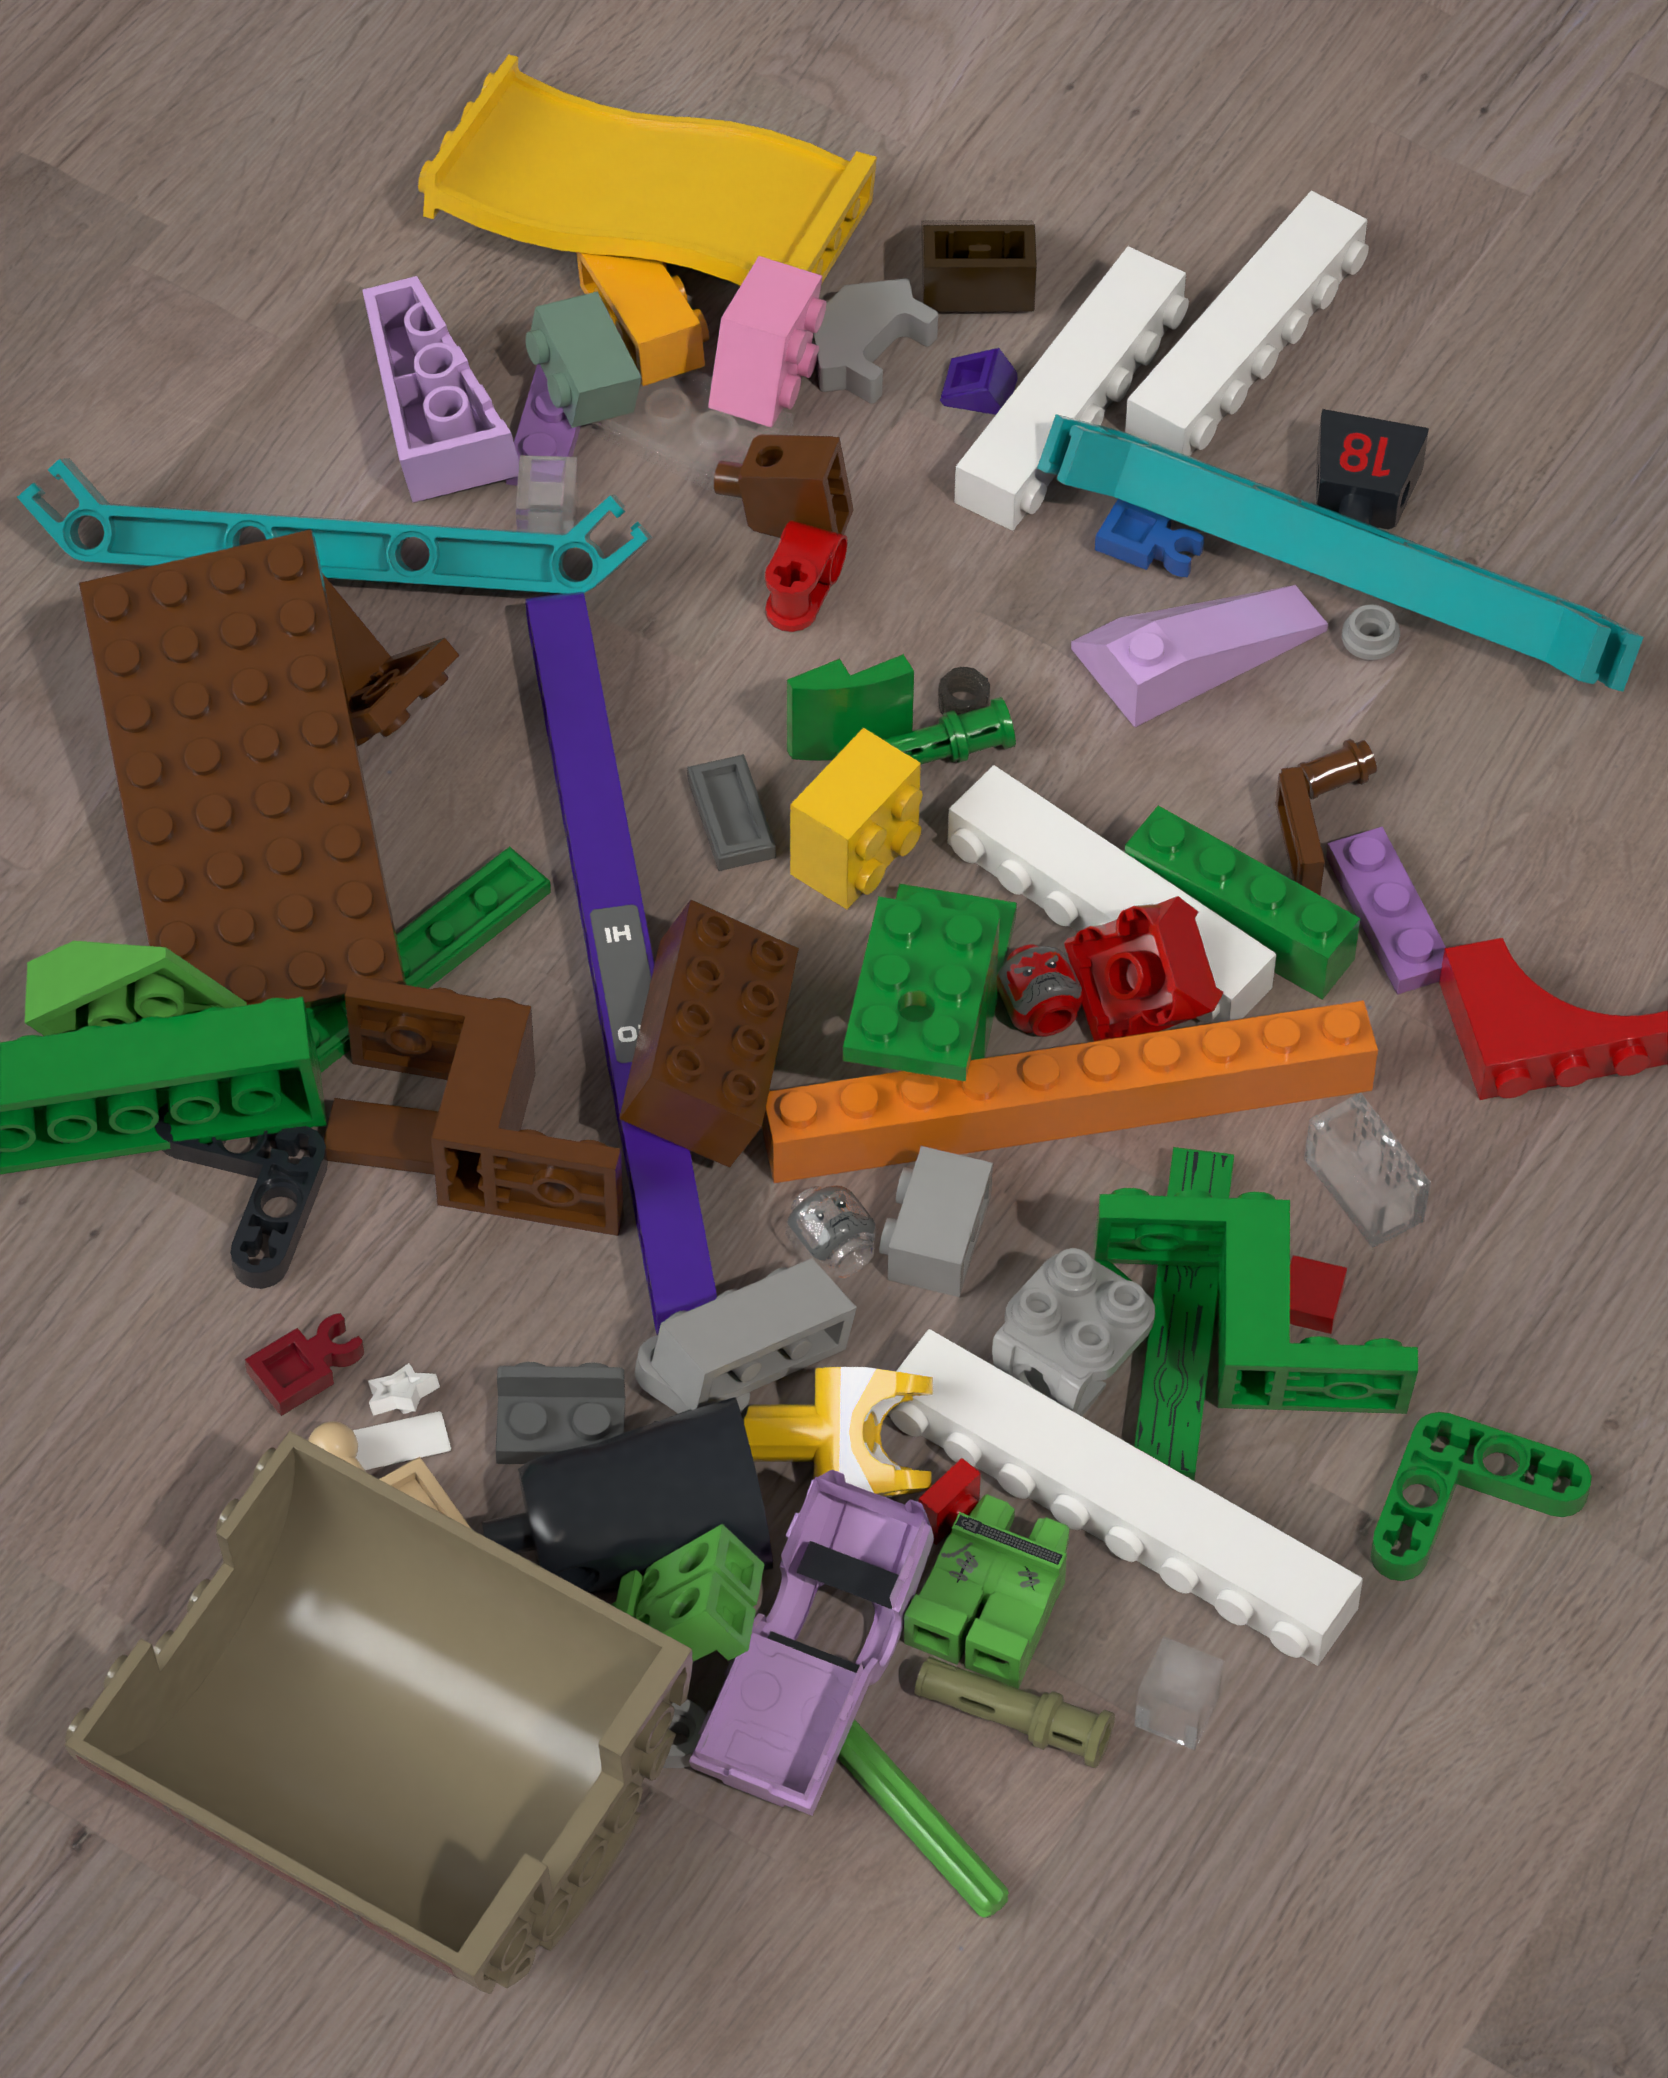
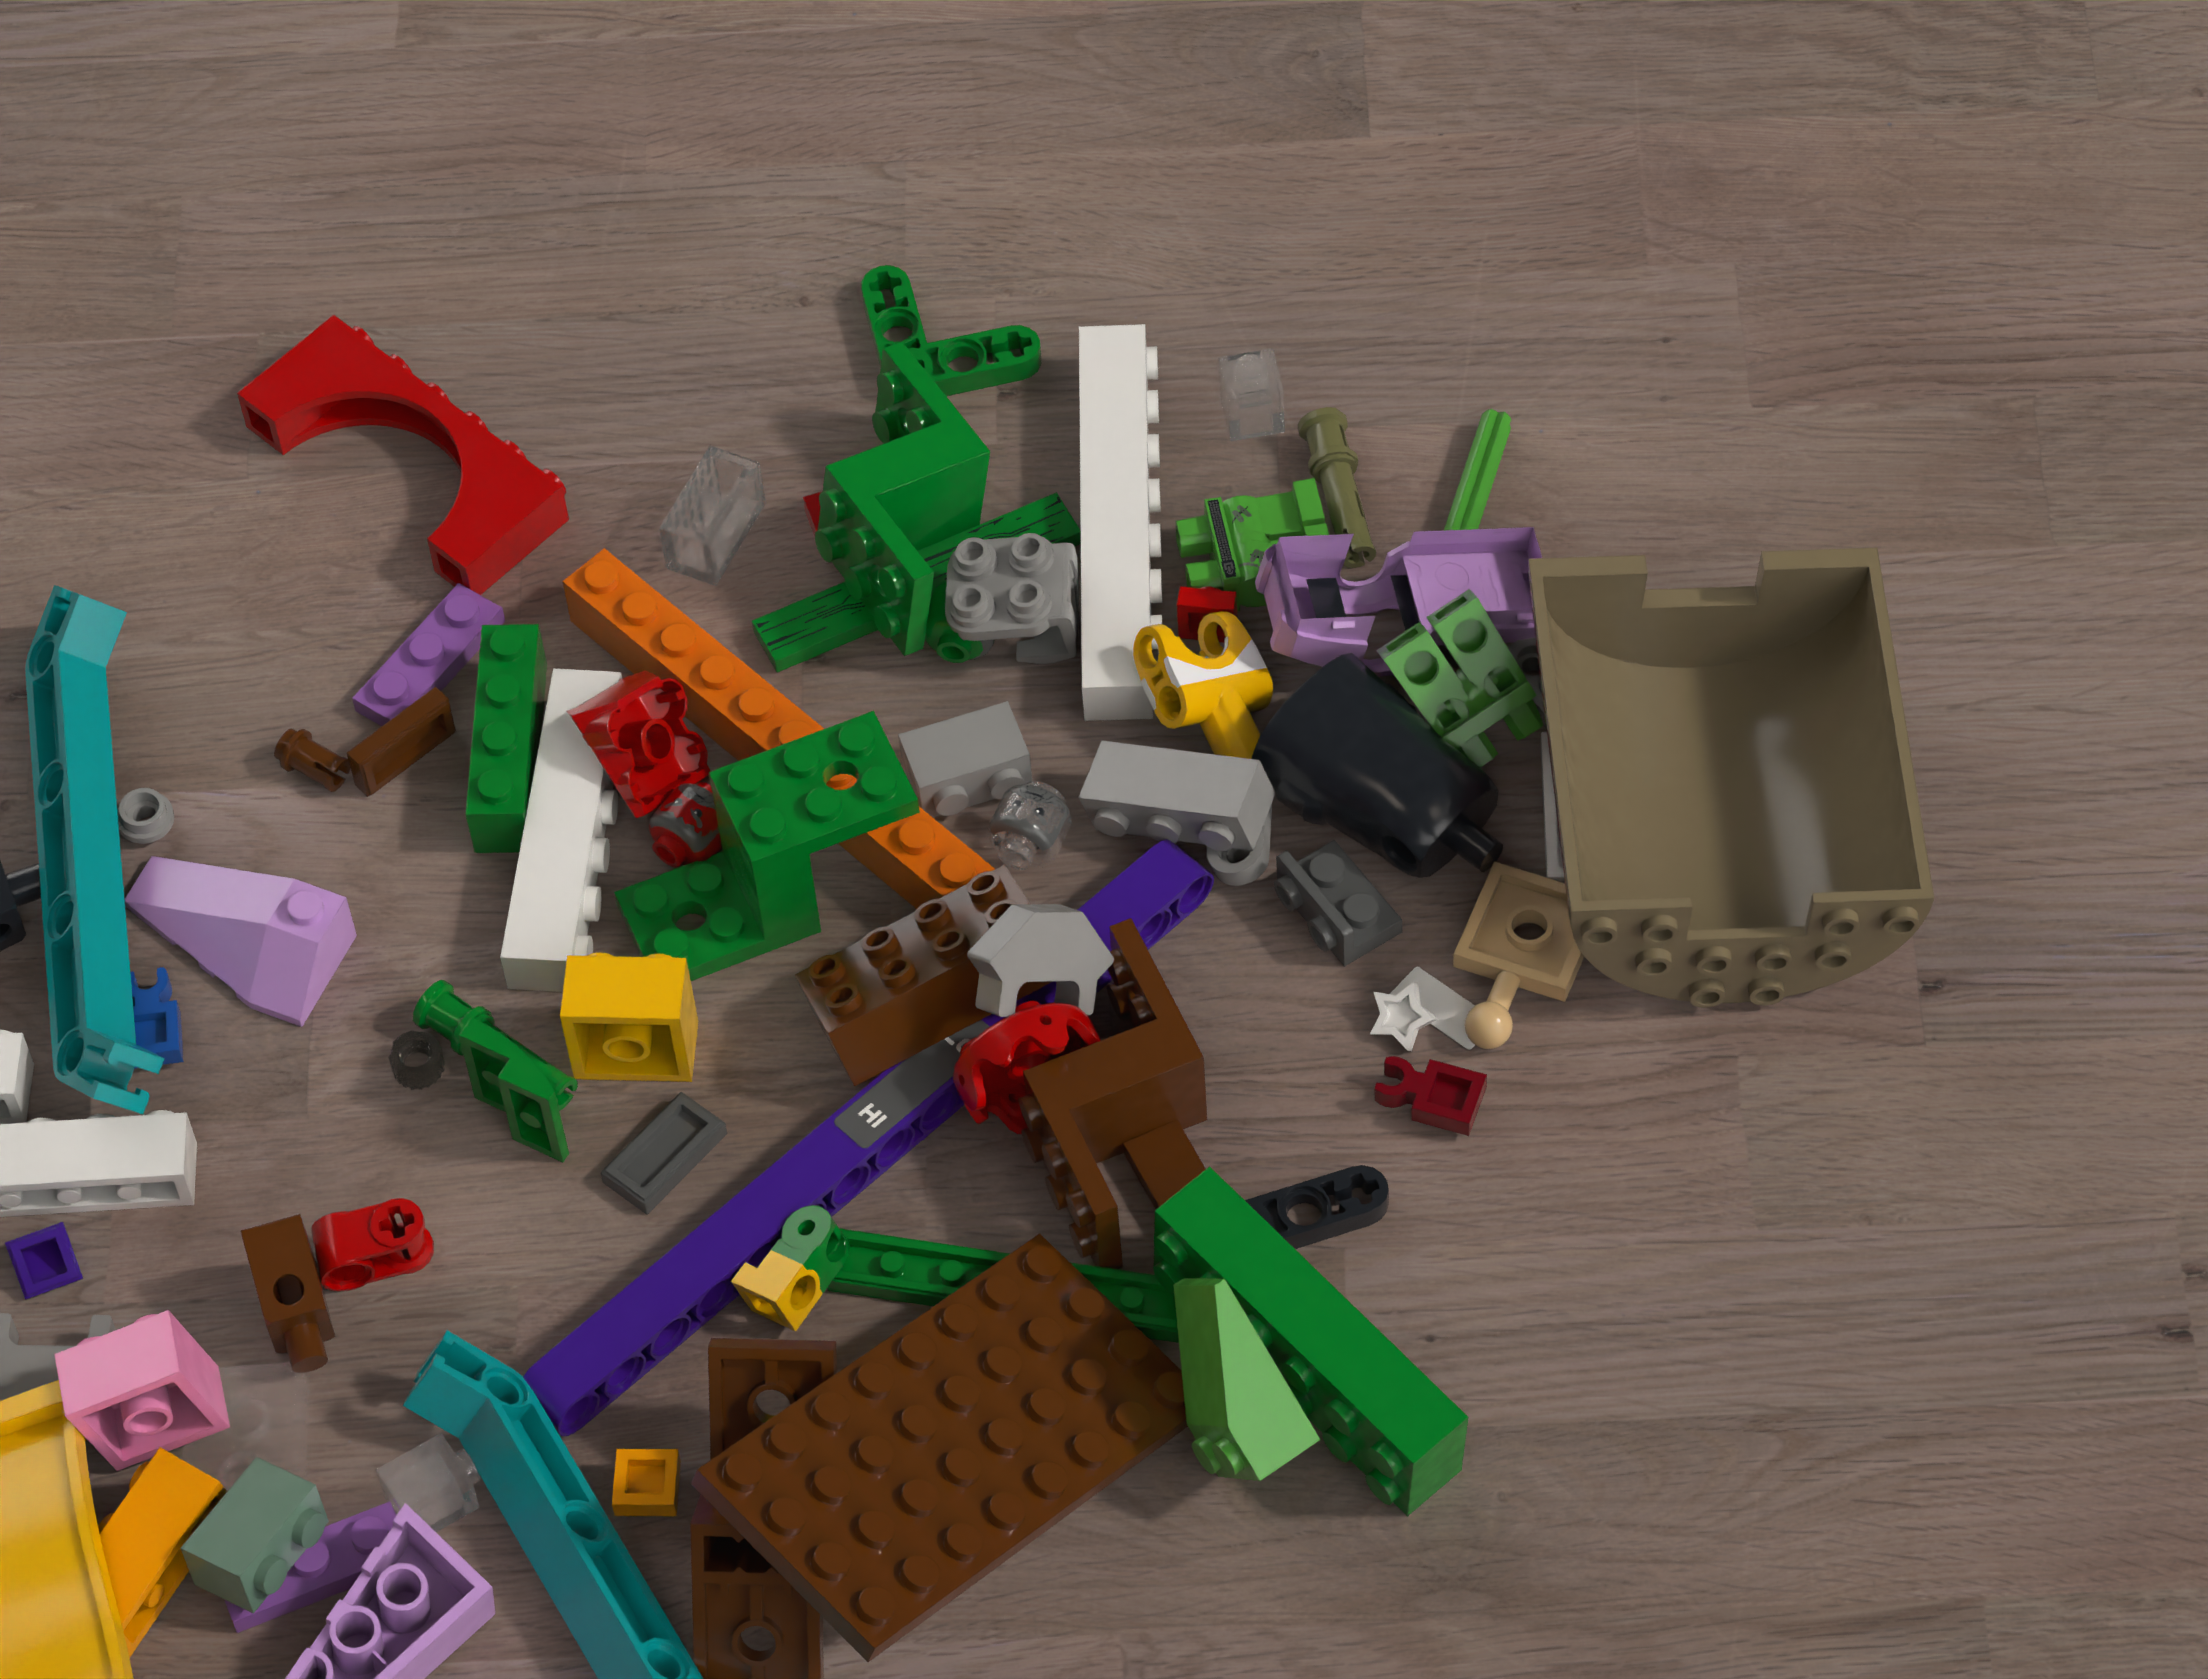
camera: 120 degrees left, 0 degrees up
(429, 624) = (646, 1482): none -> light orange plate
(524, 816) = (795, 1268): none -> leg
(571, 1061) = (993, 1062): none -> red plate
(621, 1061) = (1039, 946): none -> light grey piece

